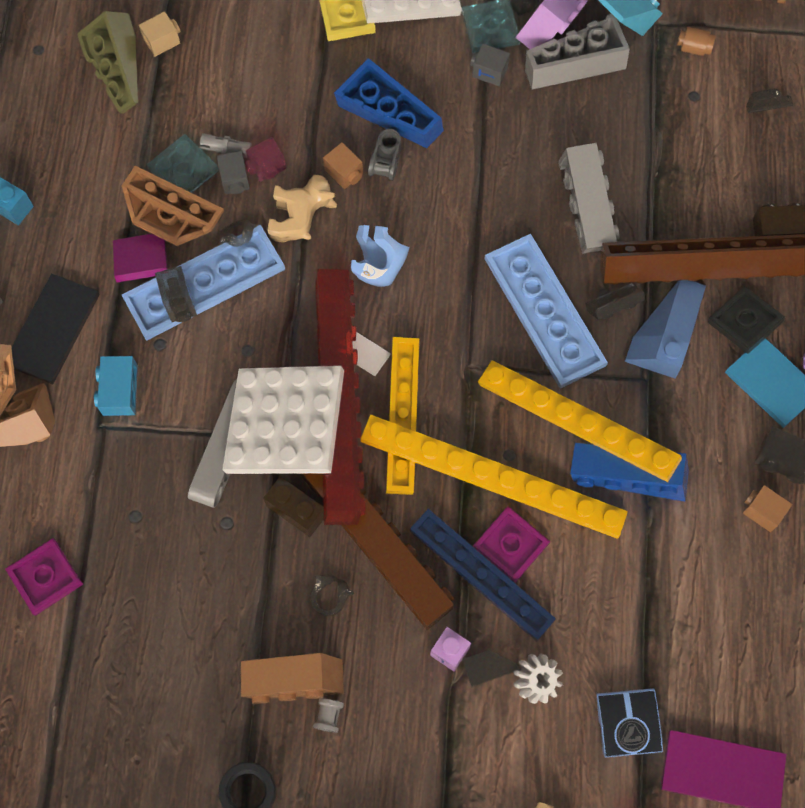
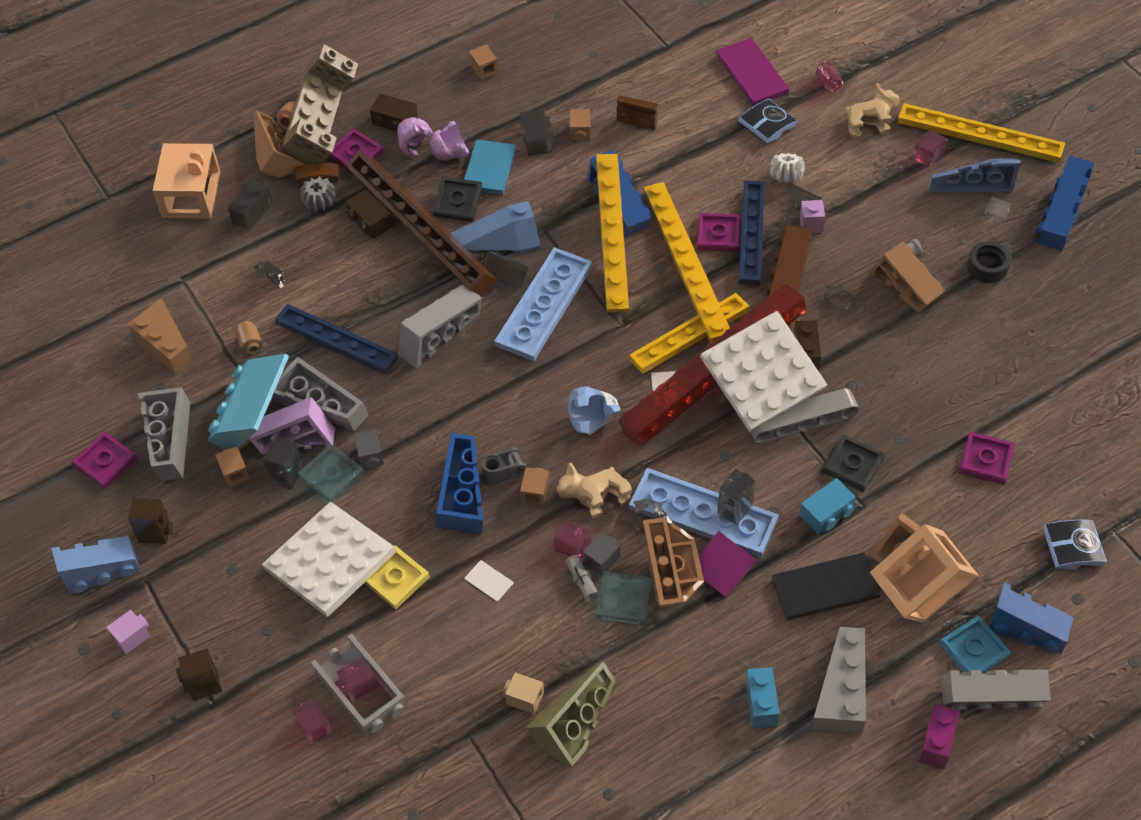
camera: 125 degrees left, 15 degrees down
(143, 451) = (853, 463): none -> pearl dark grey tile
(289, 84) = (489, 580): none -> white sticker
(642, 110) = (336, 338): none -> dark blue plate
(747, 570) = (637, 112): none -> reddish brown plate

